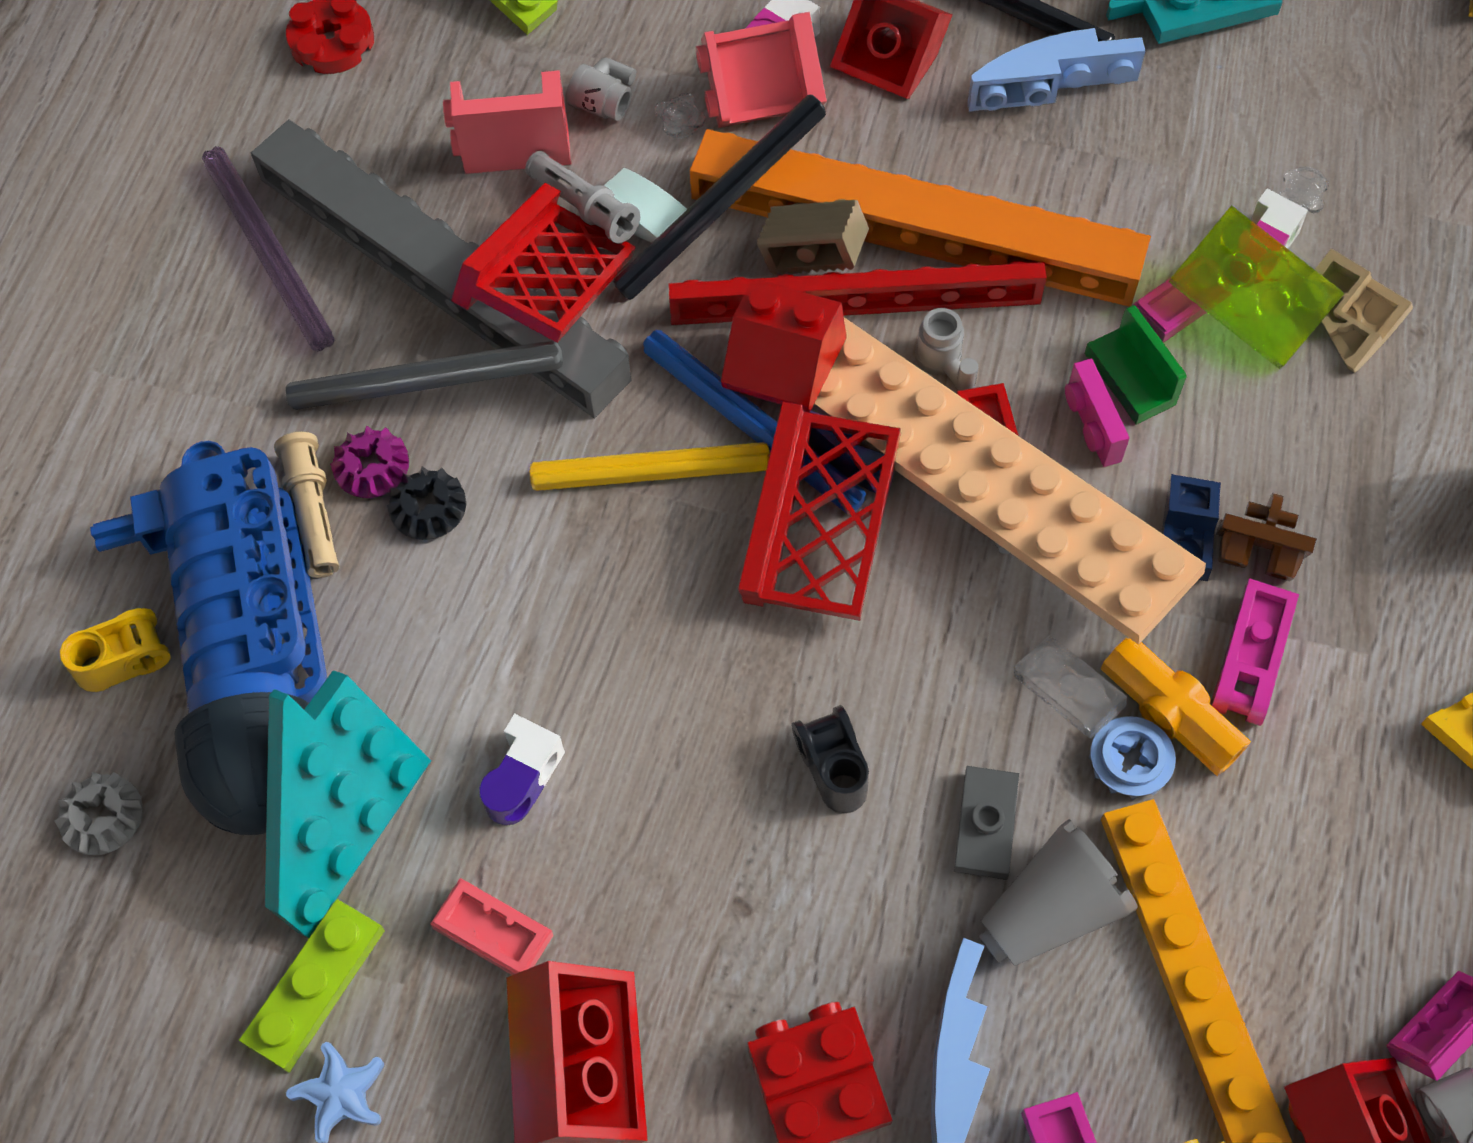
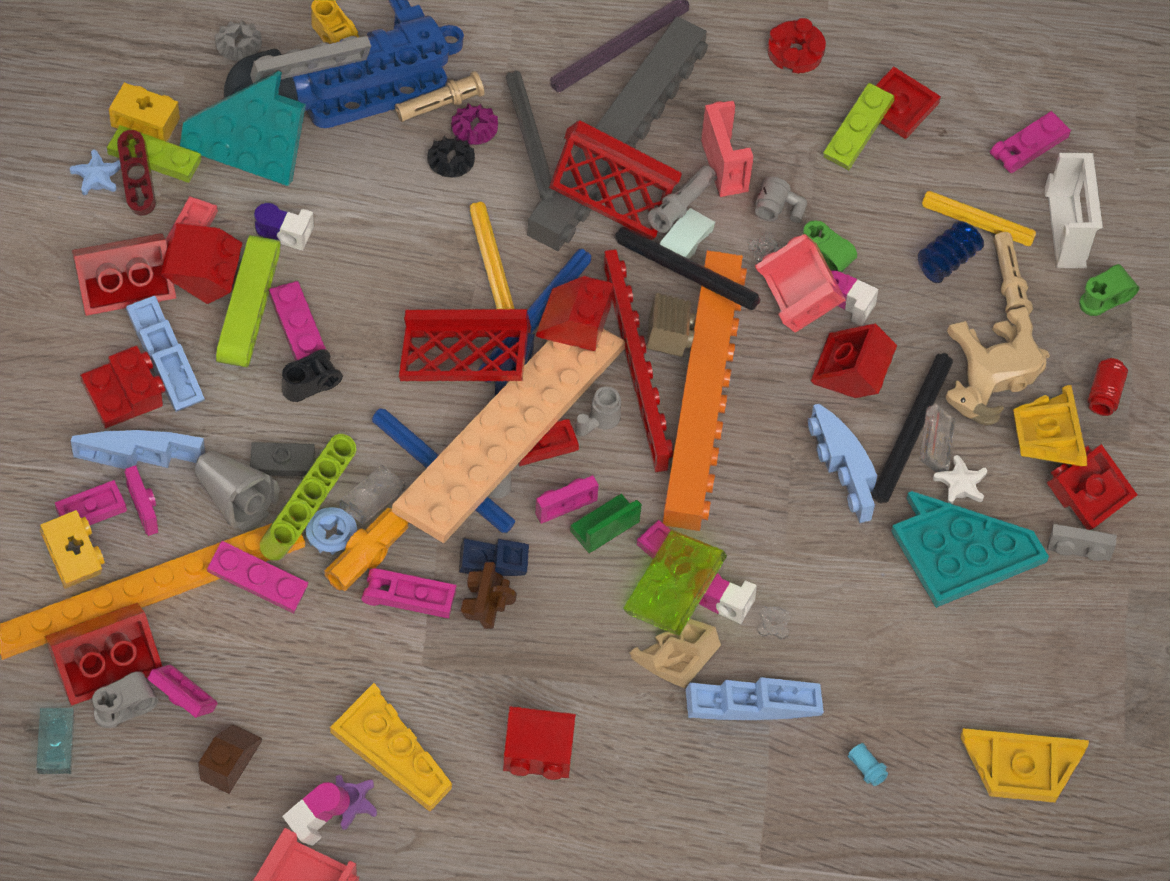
camera: 75 degrees right, 5 degrees down
(219, 1018) = (144, 112): none -> yellow brick
(242, 670) = (318, 58): none -> light grey plate
(401, 1028) = (146, 179): none -> dark red beam
(588, 906) = (201, 260): none -> red slope
(669, 844) = (248, 301): none -> lime beam
(680, 59) = (836, 250): none -> bright green piece
(719, 771) = (296, 320): none -> dark pink plate
(746, 1000) = (165, 353): none -> light blue slope
(990, 607) = (426, 456): none -> blue axle
(1064, 1062) = (142, 499): none -> dark pink plate
(1094, 777) = (300, 505): none -> lime beam
(1228, 880) = (257, 577): none -> dark pink plate
(1432, 230) = (754, 701): none -> light blue slope

